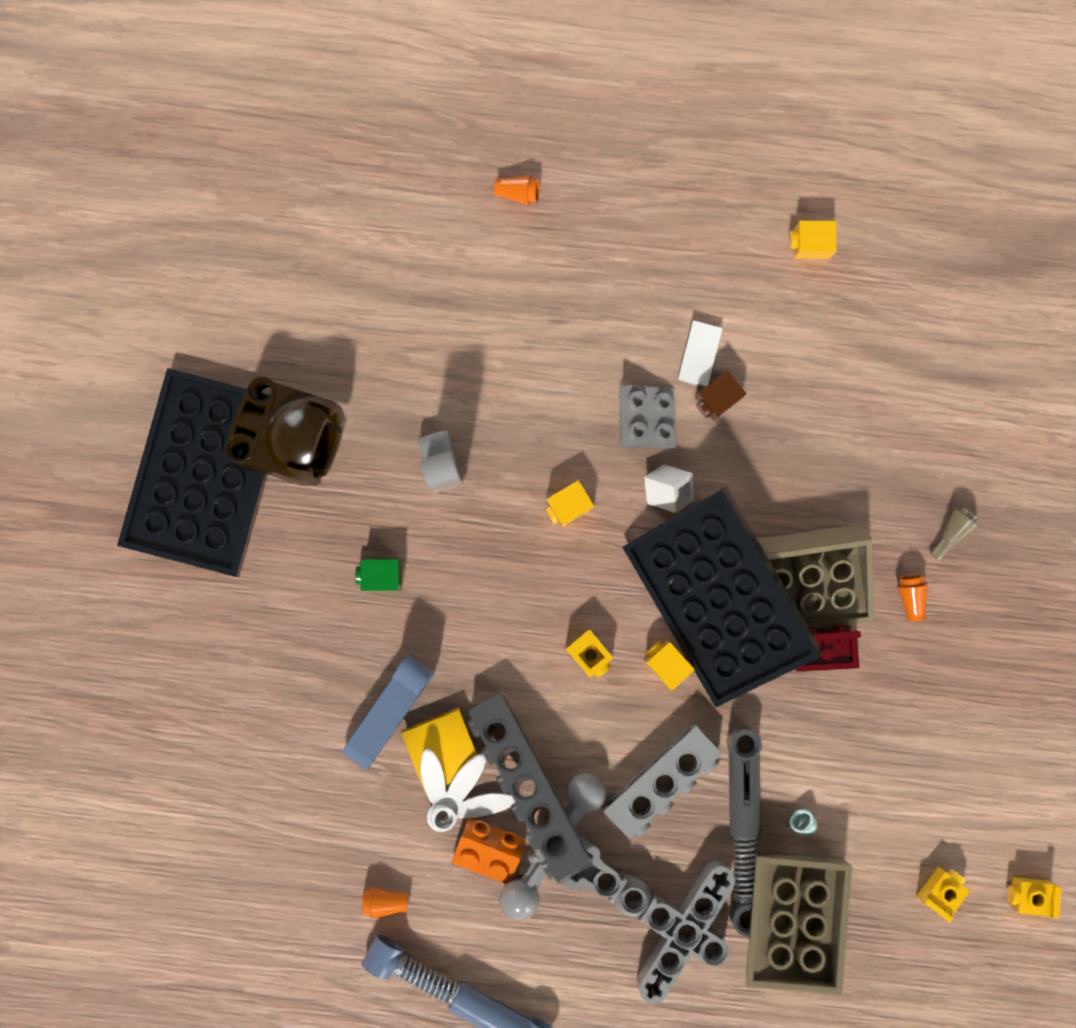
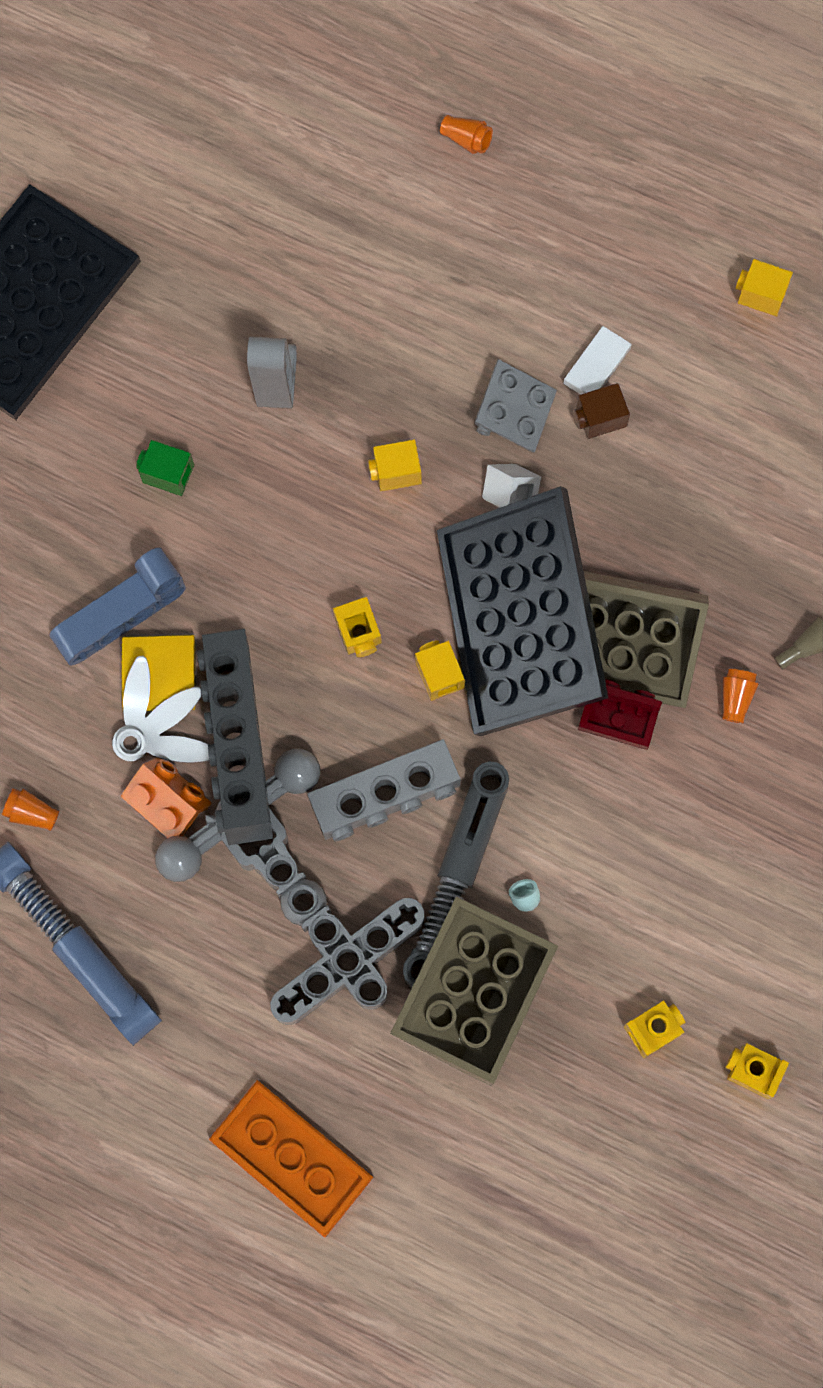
camera: 25 degrees right, 10 degrees down
(286, 433) = (126, 284): dark brown piece -> none

